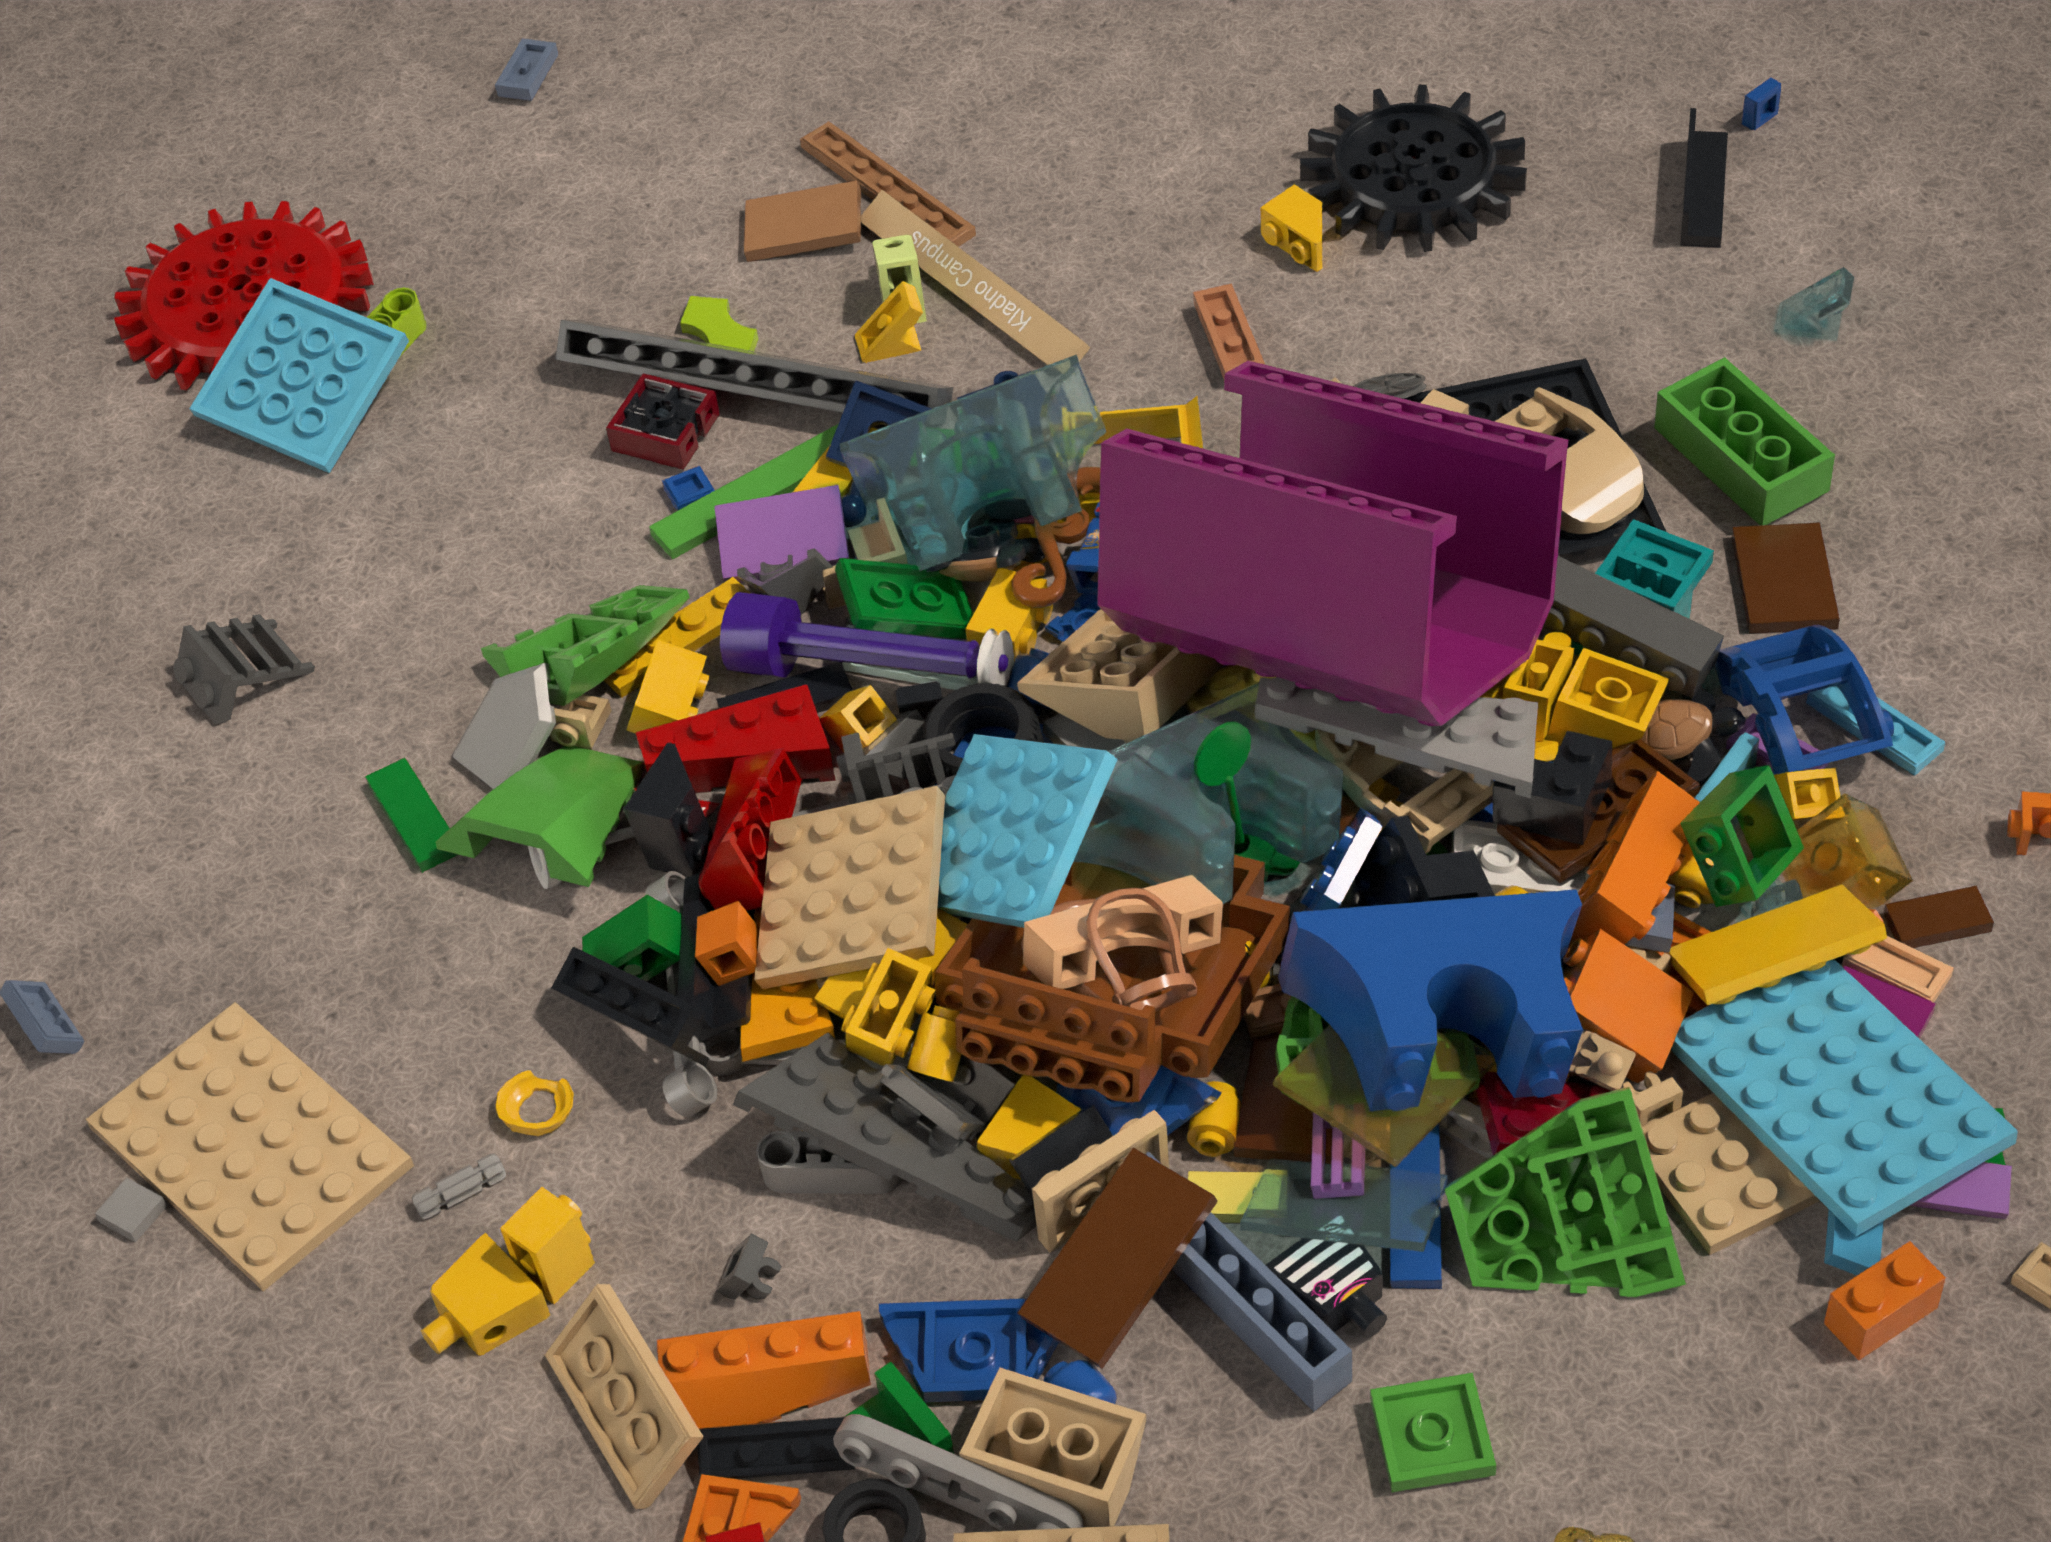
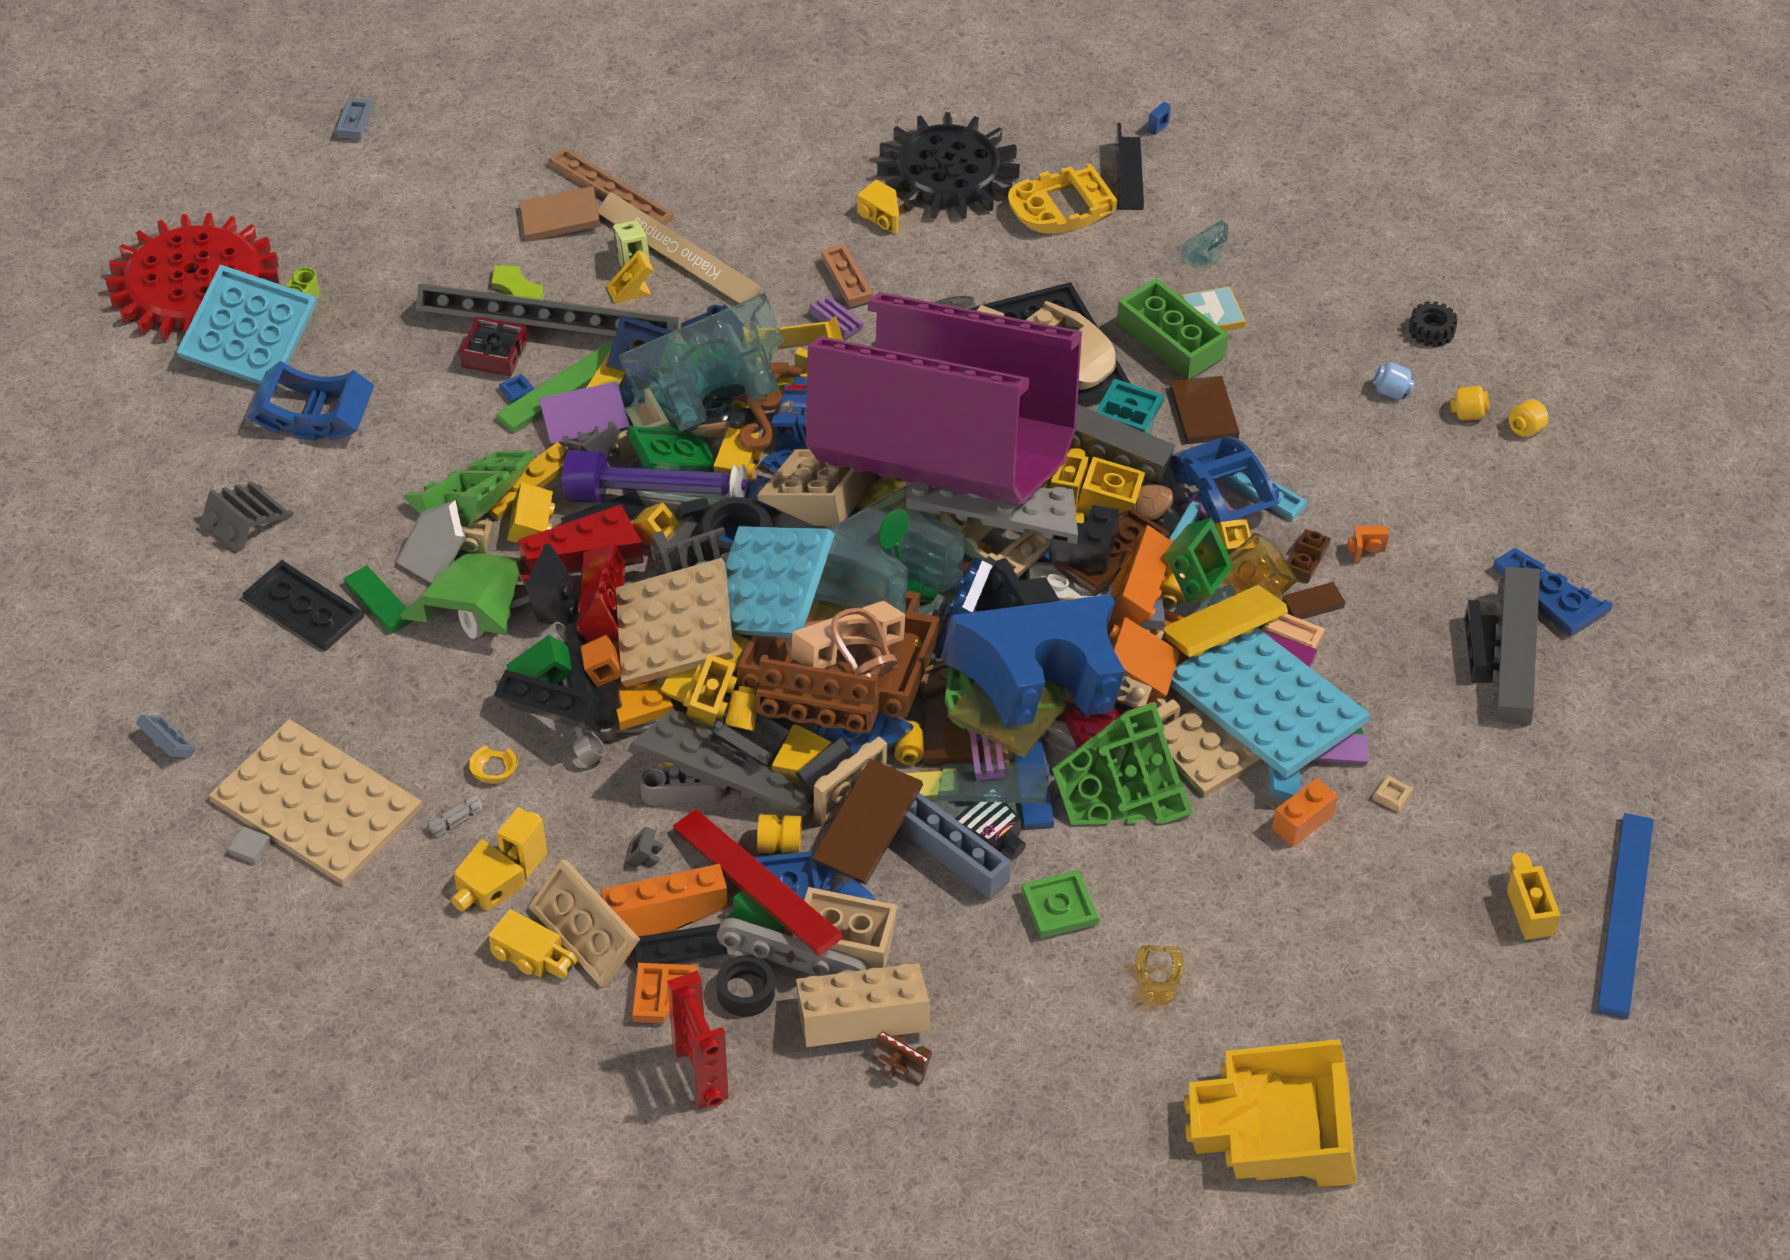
camera: 15 degrees left, 0 degrees up
(298, 817) = (303, 605): none -> black tile
(432, 487) = (345, 419): none -> blue window
(530, 1427) = (529, 946): none -> yellow brick
(920, 1354) = (758, 882): none -> red tile
(972, 1264) = (779, 834): none -> yellow wheel
(1209, 394) = (827, 309): none -> medium lavender tile
(1549, 245) = (1038, 211): none -> yellow slope
(1825, 409) = (1218, 306): none -> tile
(1936, 835) = (1308, 554): none -> reddish brown slope

